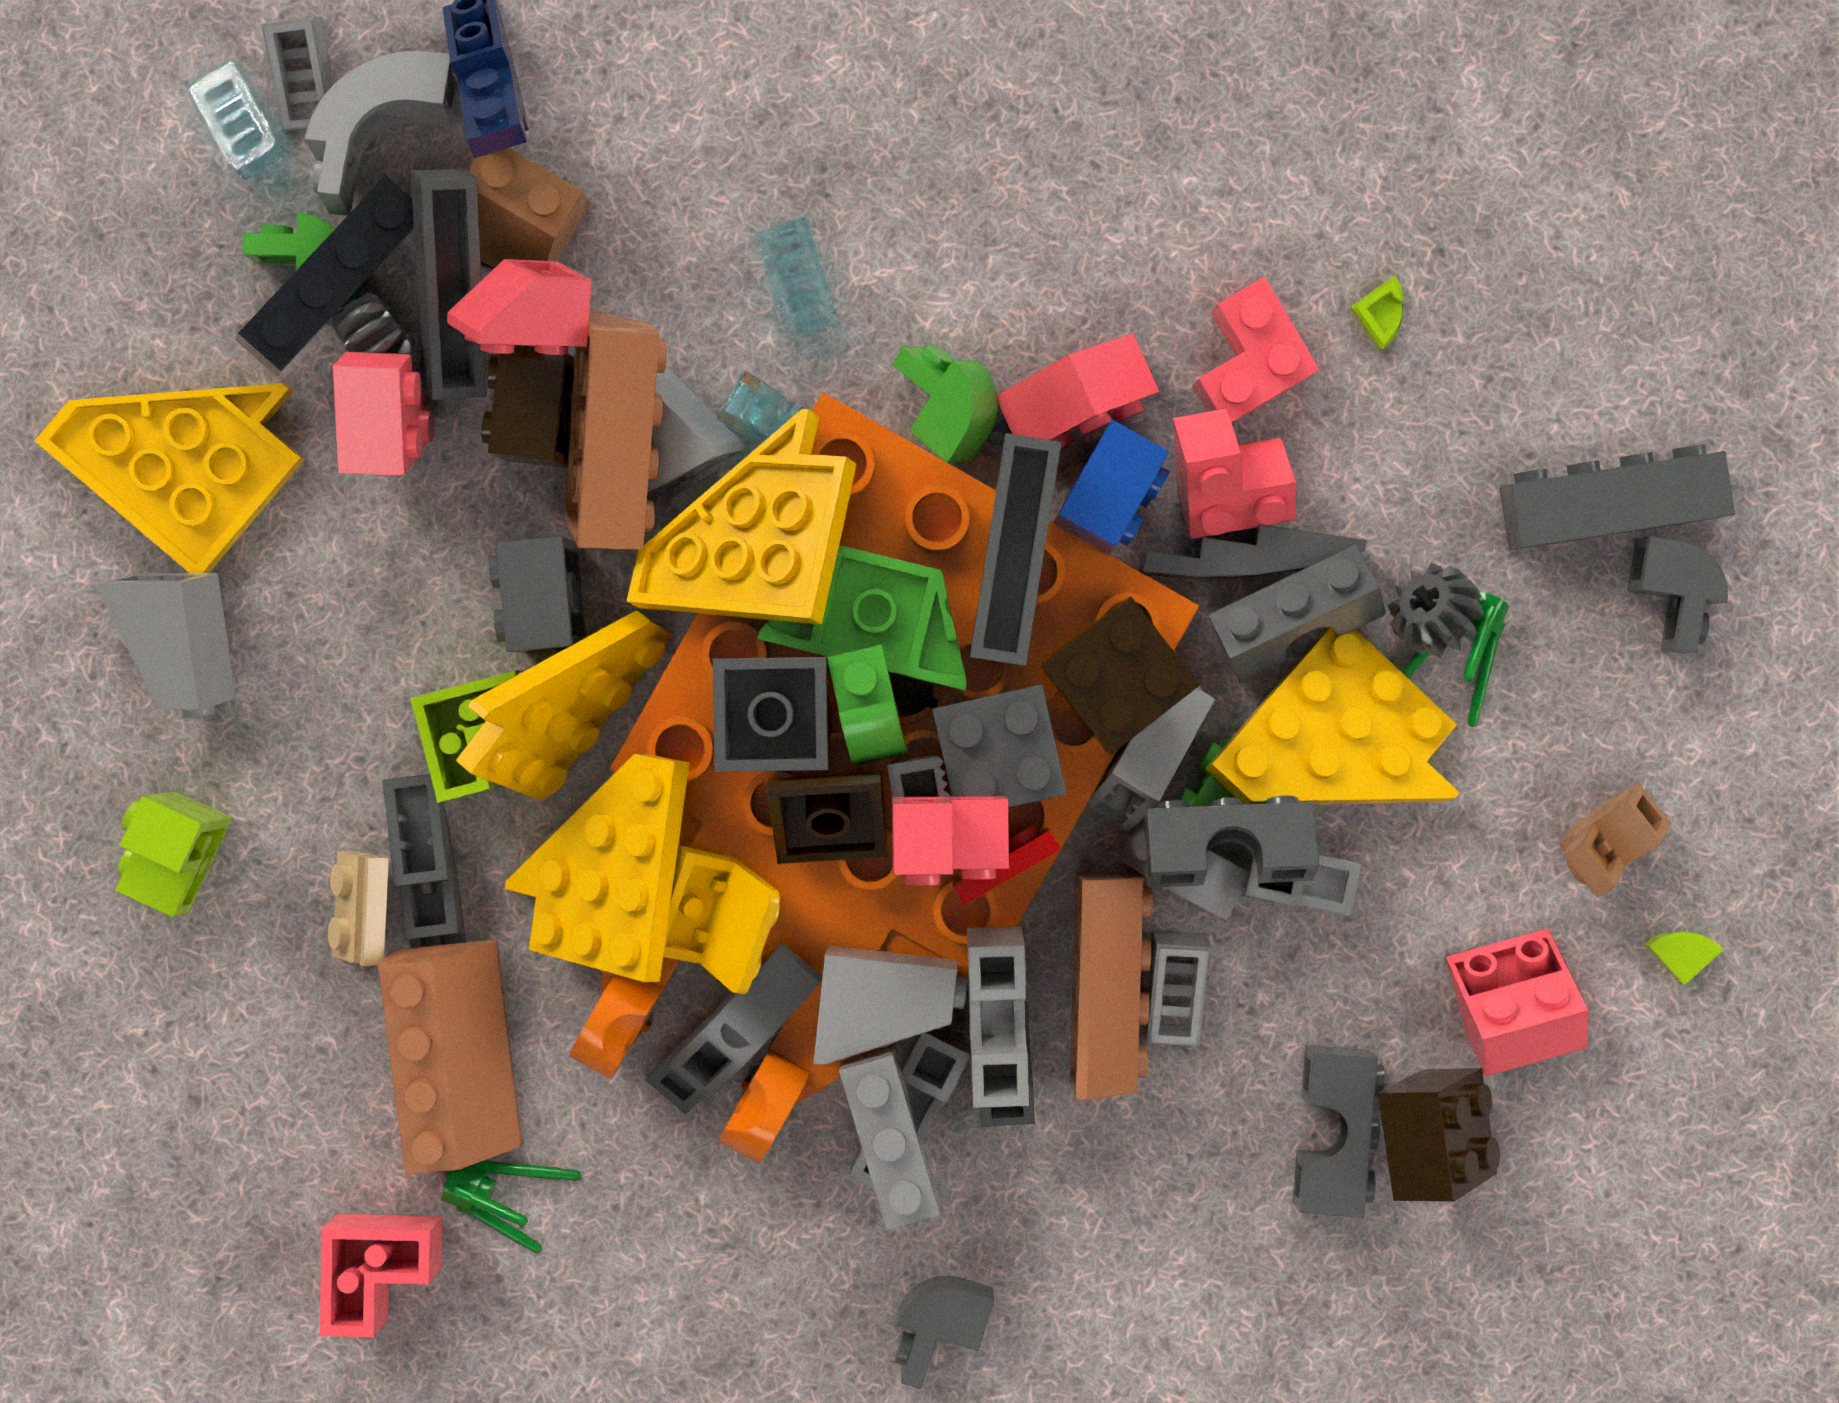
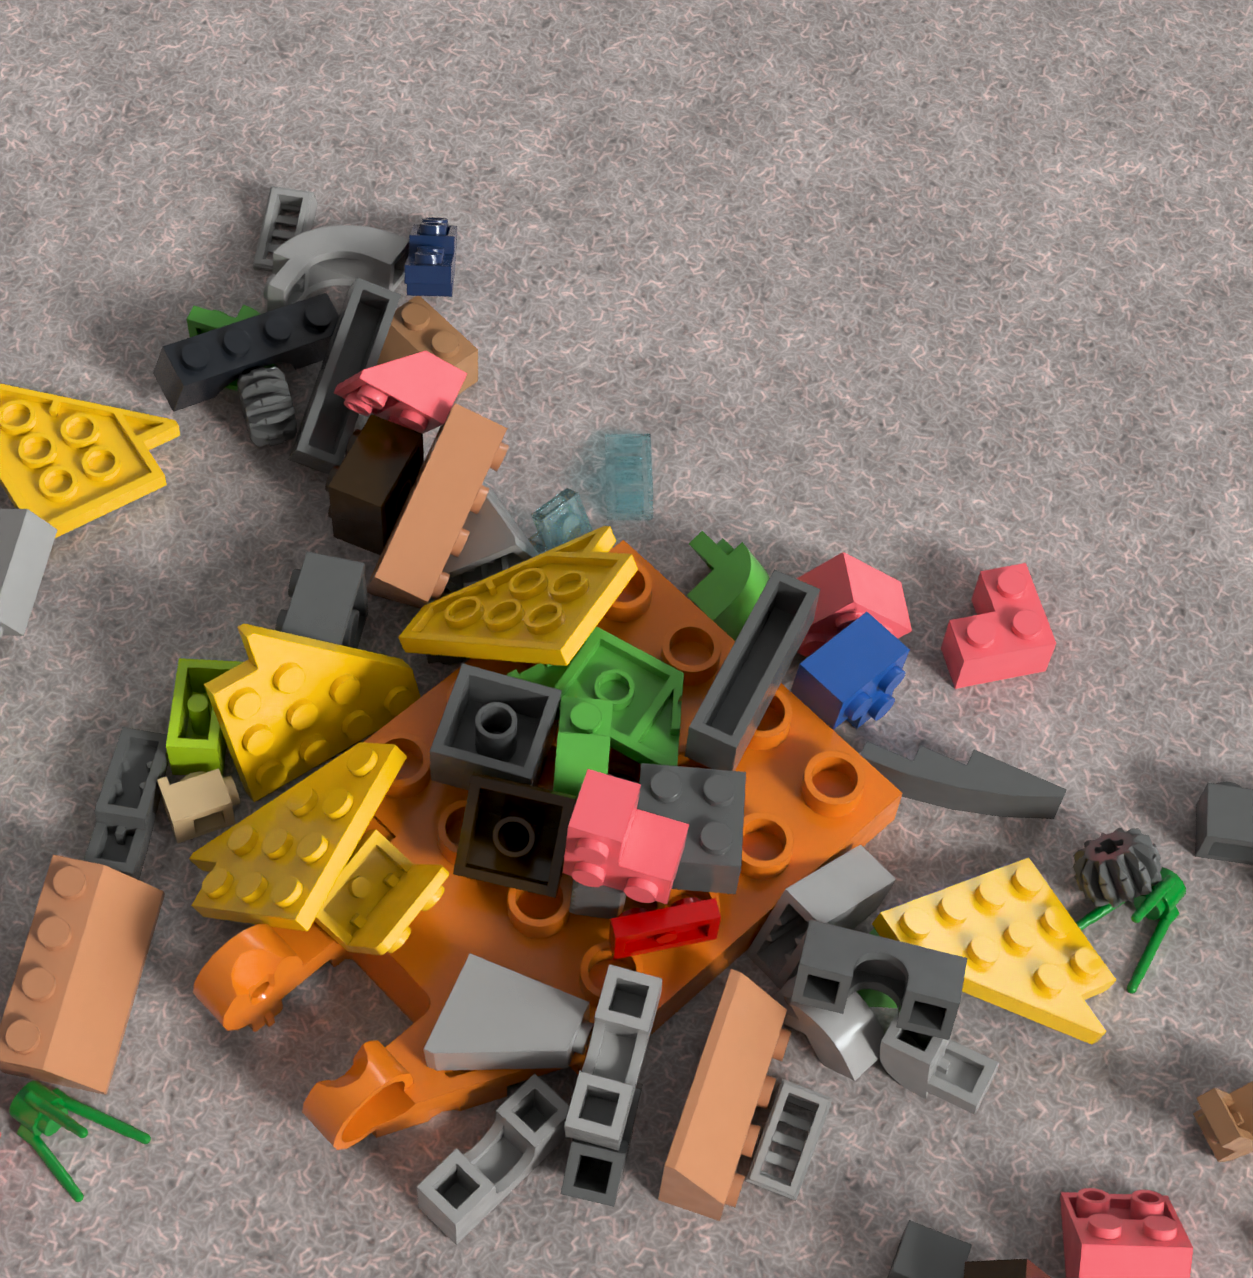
camera: 15 degrees right, 30 degrees down
(259, 154) = (224, 271): clear light blue slope -> none
(360, 907) = (58, 816): tan plate -> none
(379, 413) = (245, 444): coral brick -> none
(490, 831) = (199, 803): none -> tan brick
(734, 1030) = (358, 1014): dark grey slope -> none
(889, 1138) = (471, 1145): light grey arch -> none
(1119, 675) = (816, 799): dark brown brick -> none
(1226, 483) = (946, 712): coral brick -> none
(1328, 594) = (952, 830): dark grey arch -> none
(1381, 312) = (1118, 637): lime tile -> none

